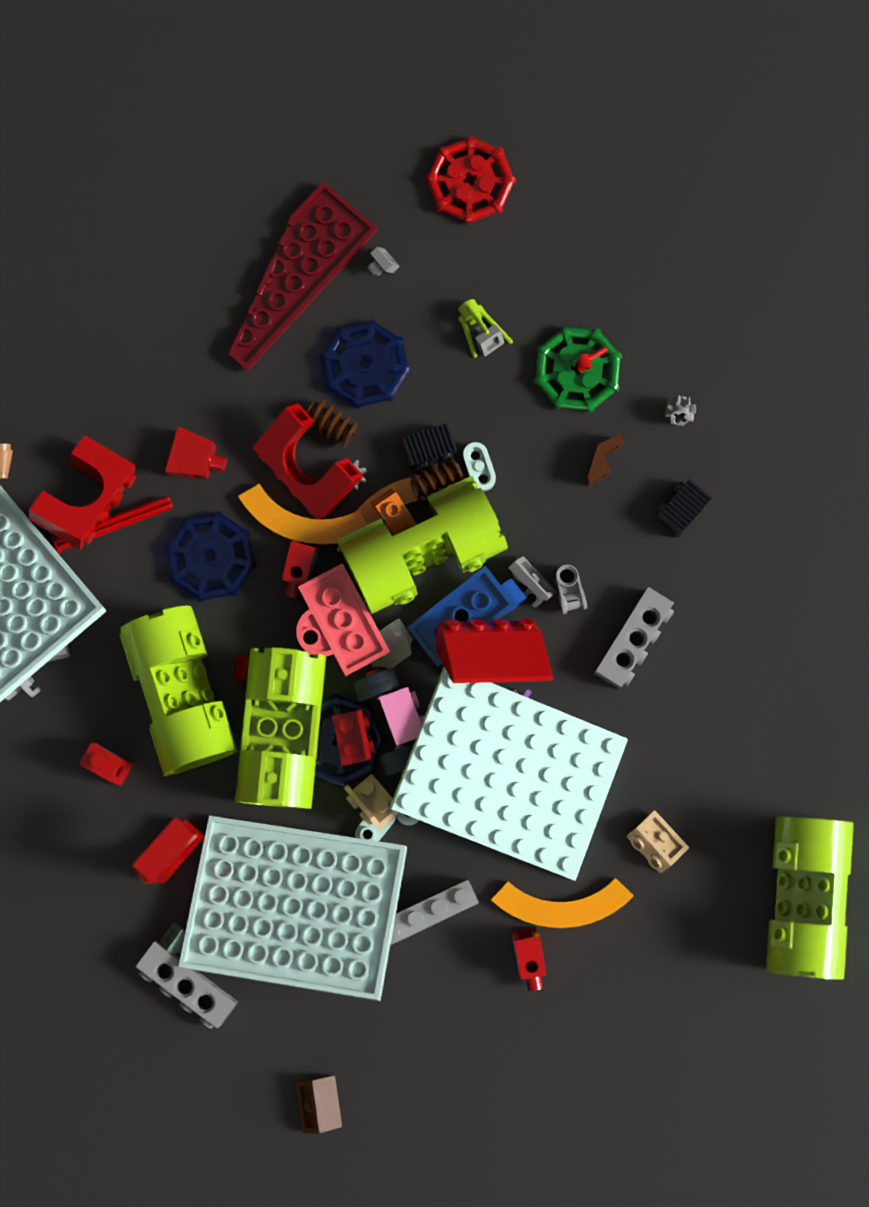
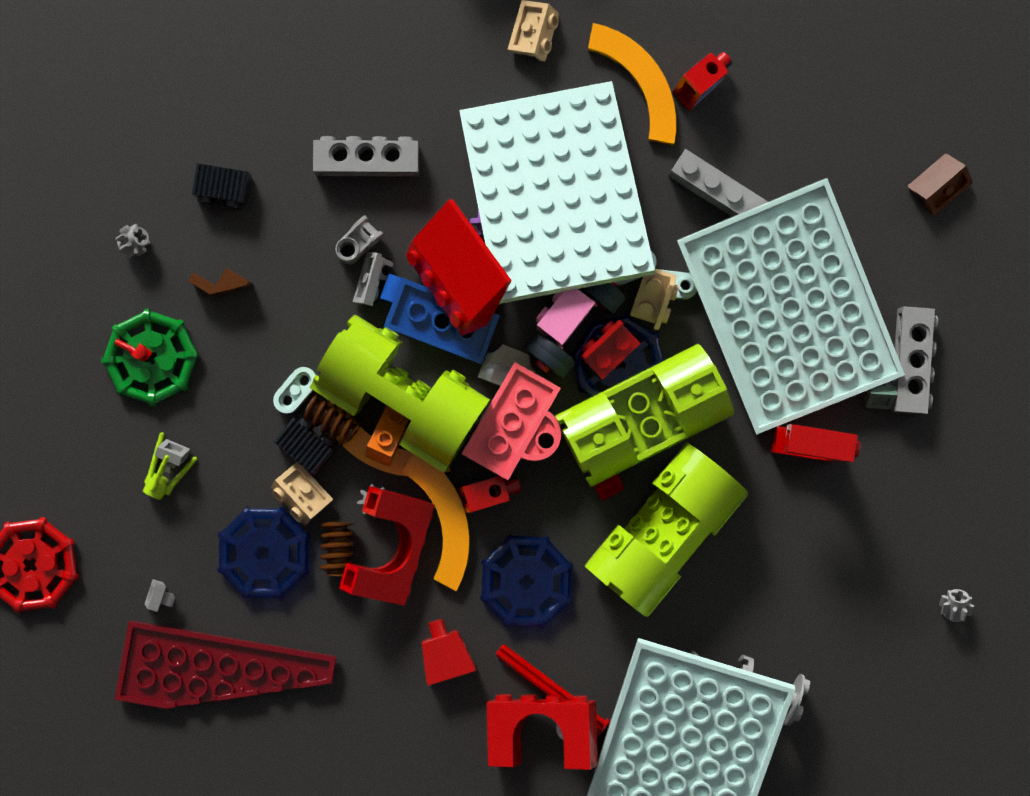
camera: 120 degrees left, 5 degrees up
(106, 763) = (769, 555): red torso -> none
(393, 421) = (300, 493): none -> tan bracket

